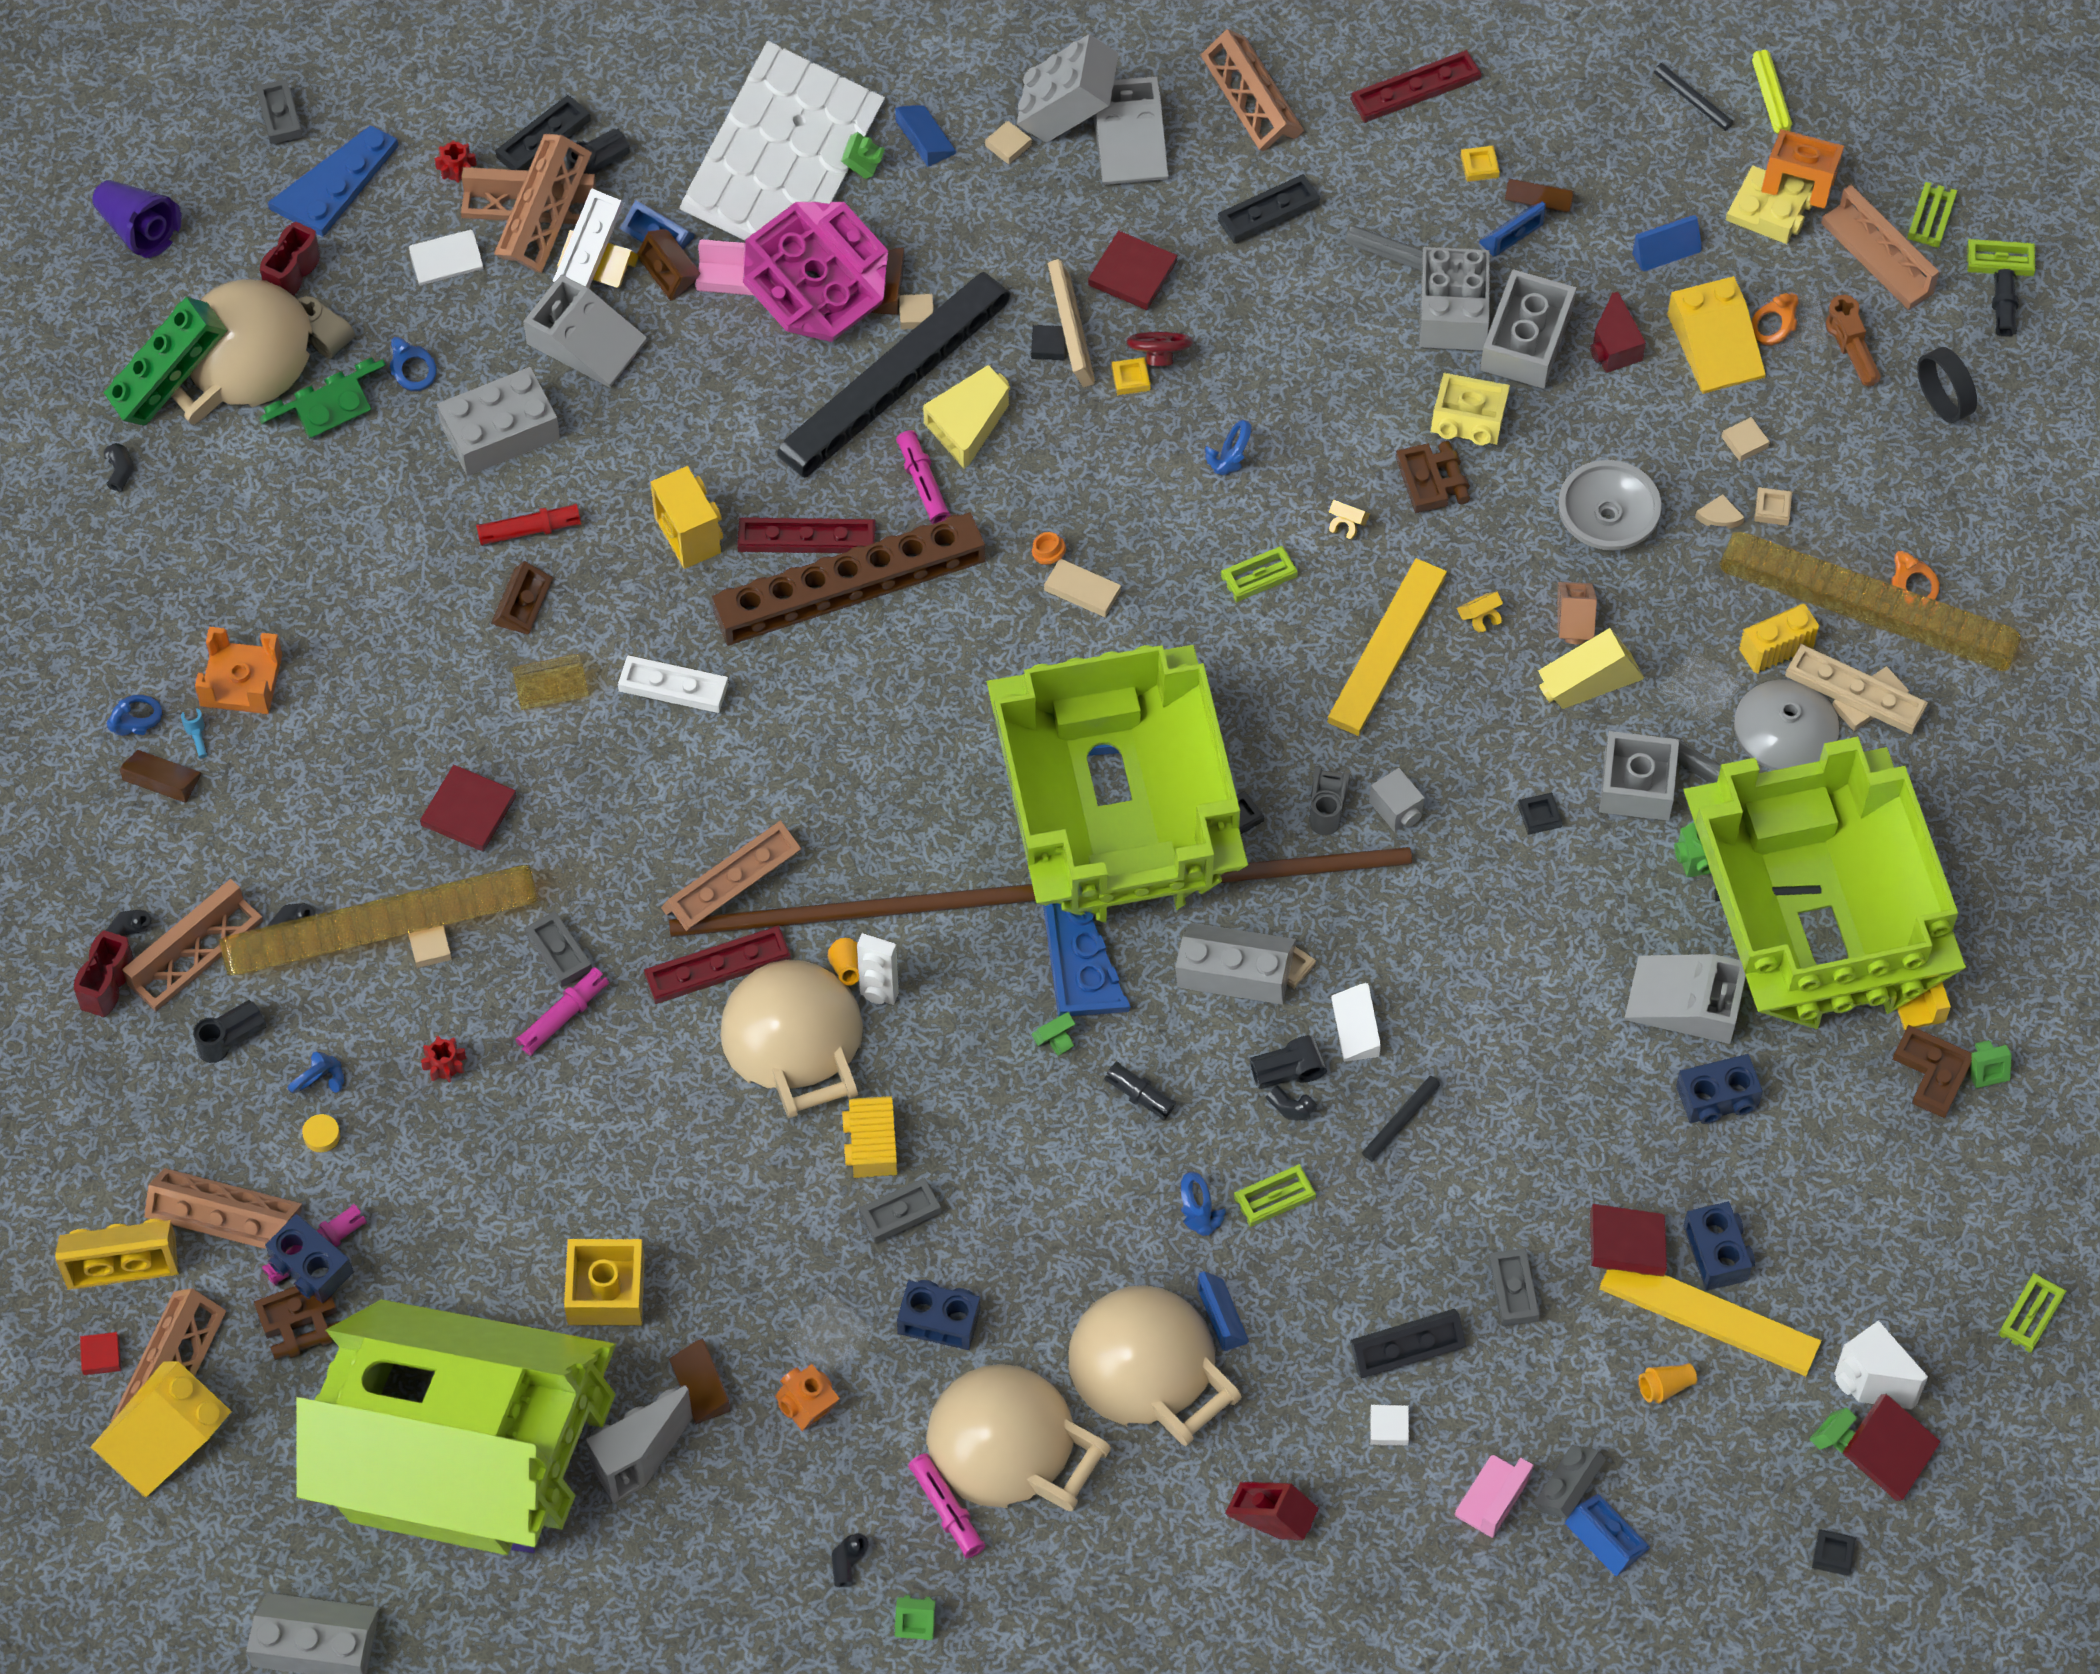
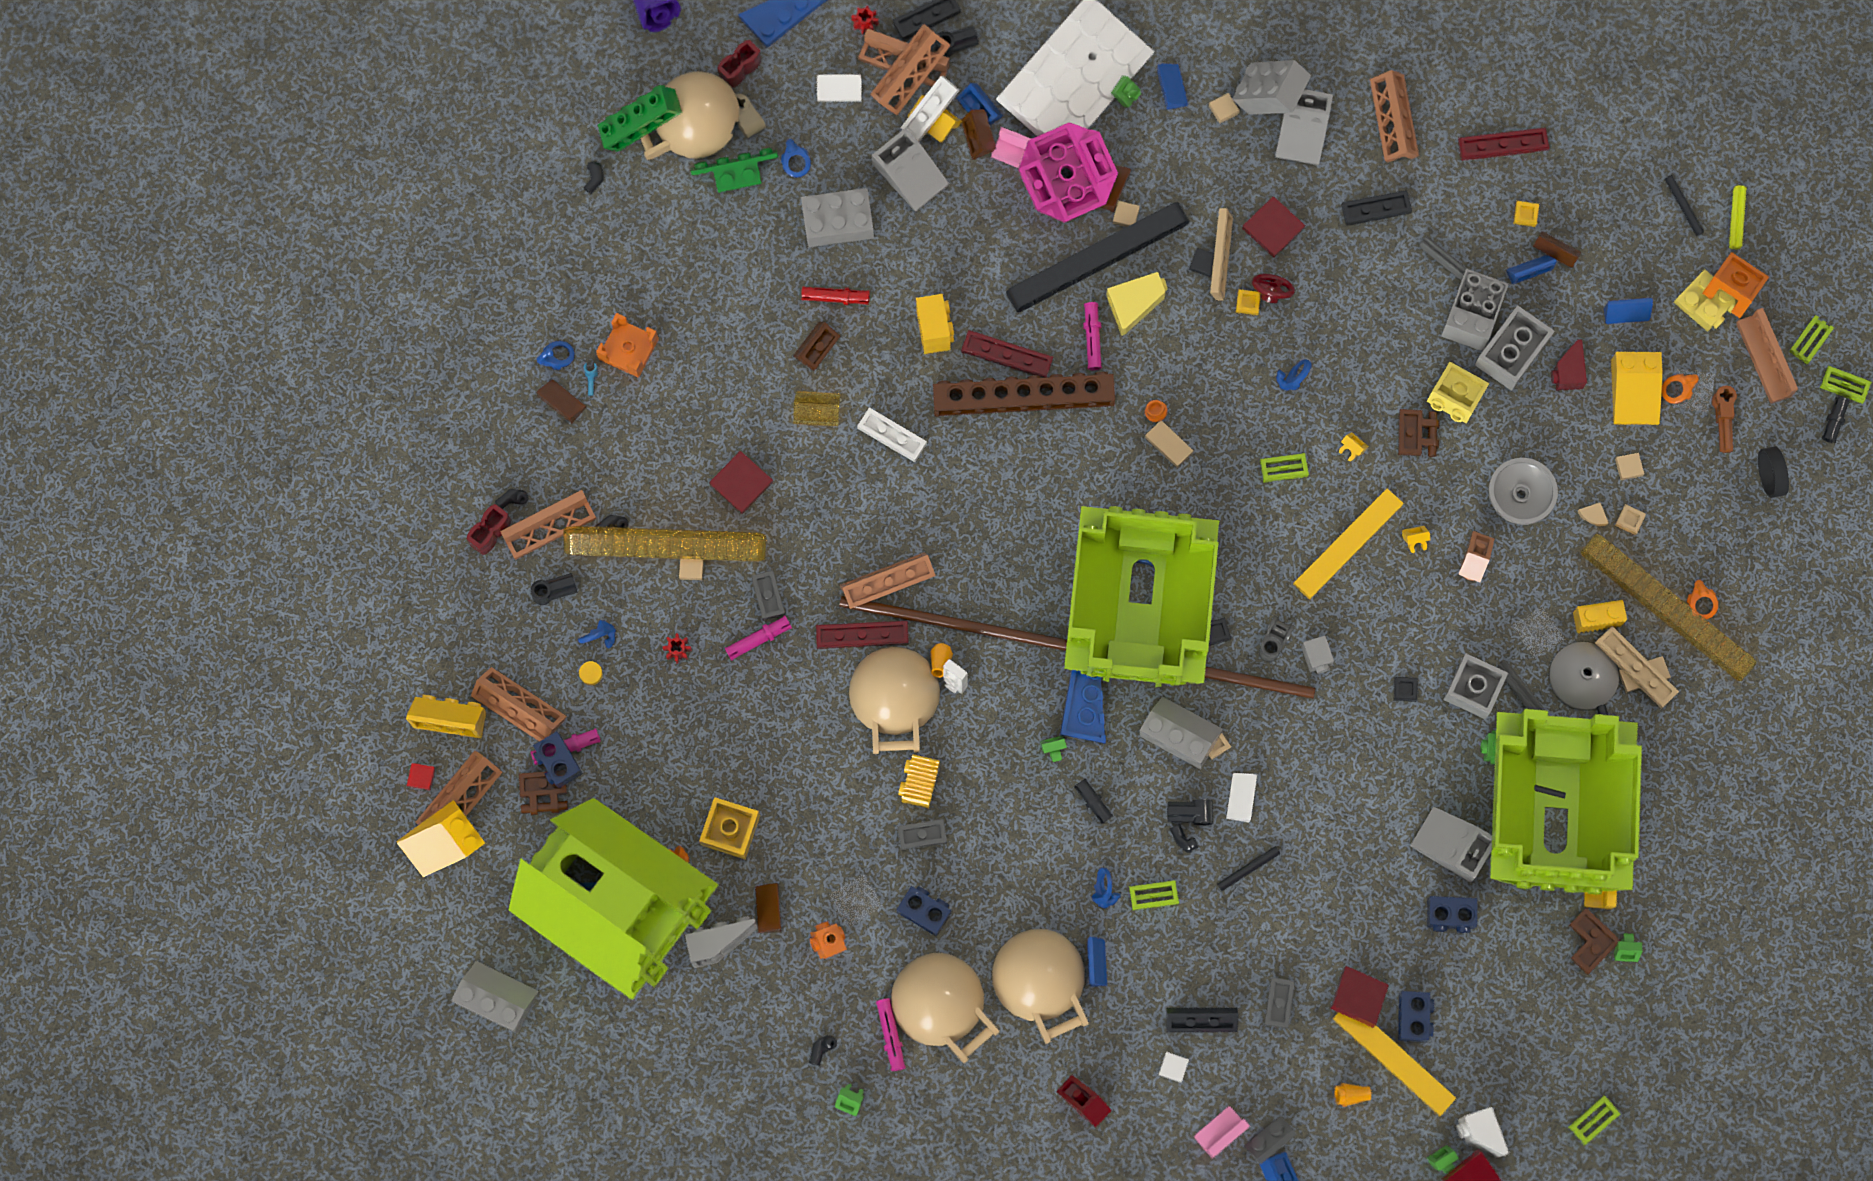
camera: 20 degrees right, 15 degrees up
(1590, 671) = (1470, 603): light yellow slope -> none

